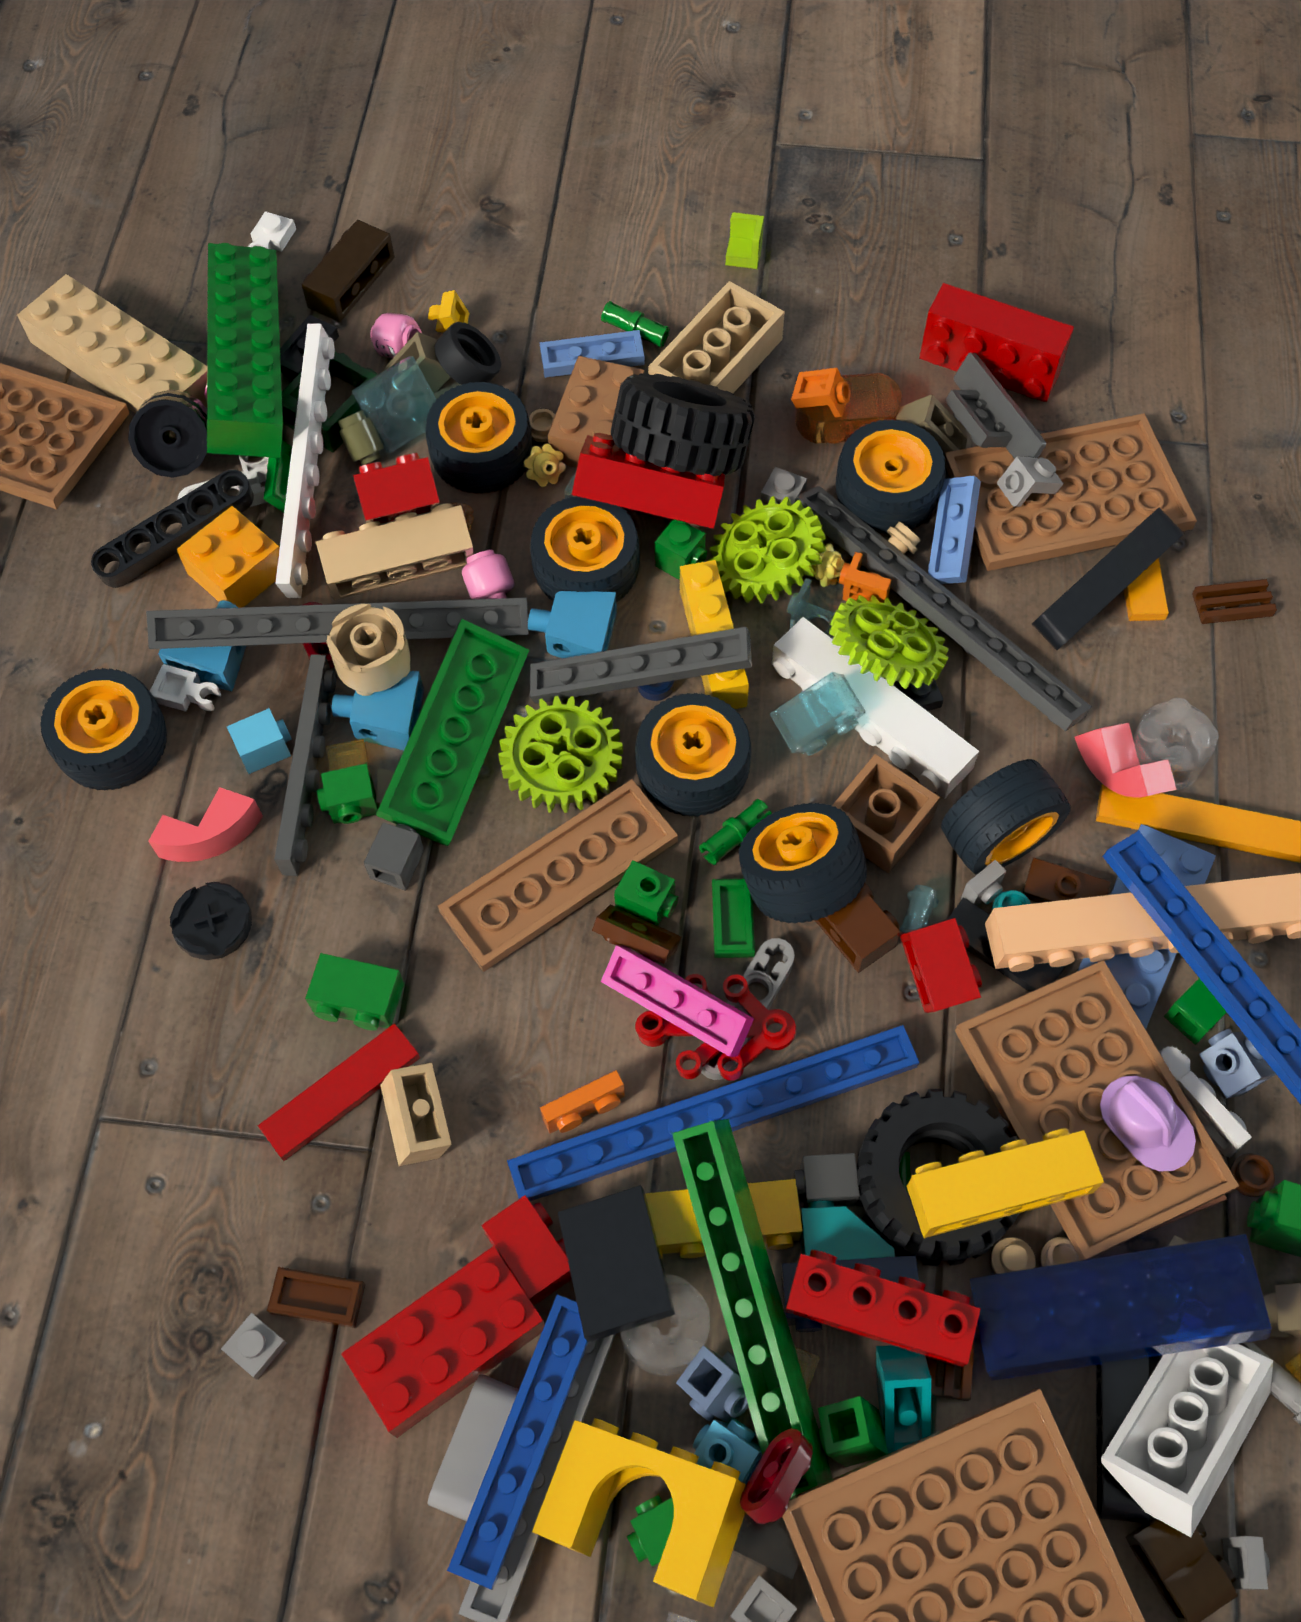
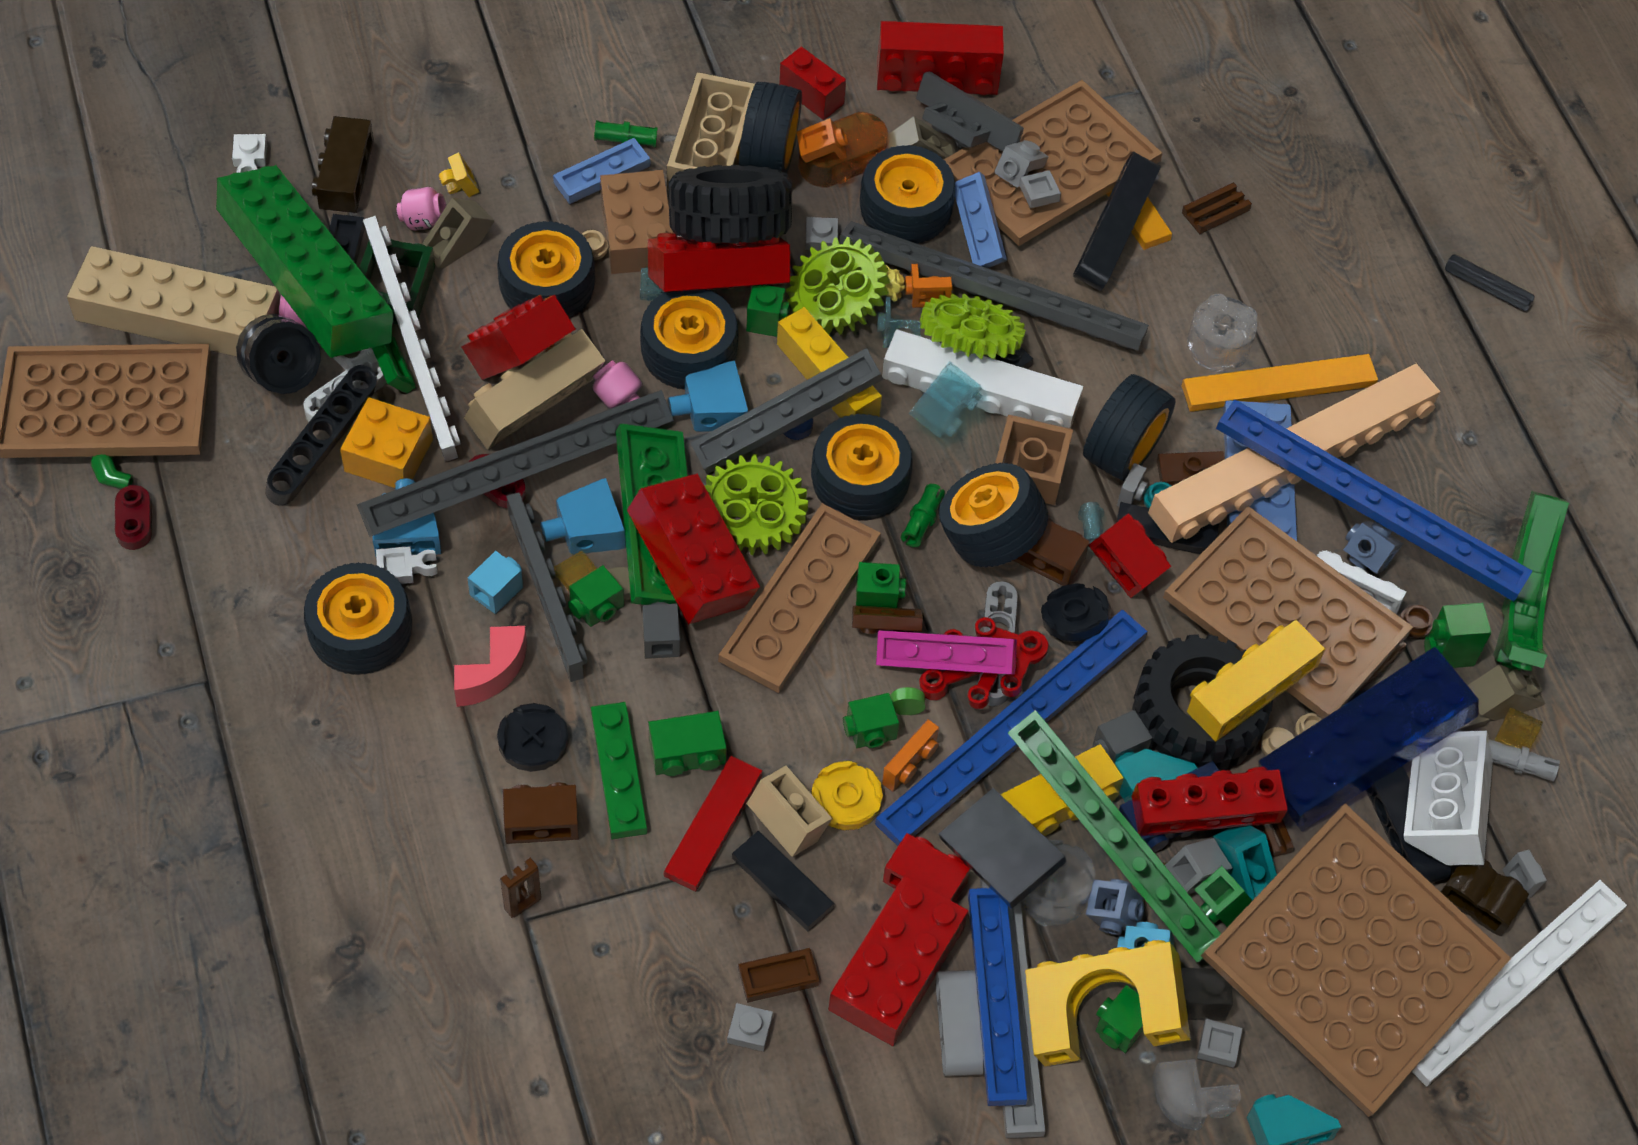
camera: 30 degrees left, 5 degrees down
(101, 1084) = (514, 889): none -> reddish brown tile
(167, 1008) = (540, 813): none -> reddish brown brick
(275, 992) = (618, 770): none -> green plate
(360, 438) = (442, 305): olive brick -> none
(369, 648) = (563, 471): tan brick -> none
(377, 1189) = (783, 880): none -> black tile
(397, 403) = (462, 266): clear light blue plate -> none
(464, 780) = (693, 548): none -> red brick
(467, 354) = (500, 205): black tyre -> none
(495, 1118) = (848, 794): none -> yellow tile
(544, 465) = (613, 277): light yellow plant -> none
(560, 1045) = (871, 721): none -> green brick
(611, 1037) = (908, 701): none -> bright green tile
(732, 919) = (952, 581): green tile -> none
(745, 240) = (684, 33): lime panel -> none
(770, 359) = (770, 126): none -> black wheel
(776, 1476) = (1194, 932): dark red plate -> none
(841, 1376) = (1196, 863): none -> light grey brick
(849, 1007) = (1075, 612): none -> black tile
(850, 329) = (820, 85): none -> red brick
(903, 538) = (940, 241): tan plate -> none
(1035, 516) = (1040, 189): none -> light grey plate
(1114, 762) = (1184, 360): coral brick -> none
(1148, 1123) = (1331, 605): lavender piece -> none
(1195, 1012) = (1328, 520): green brick -> none

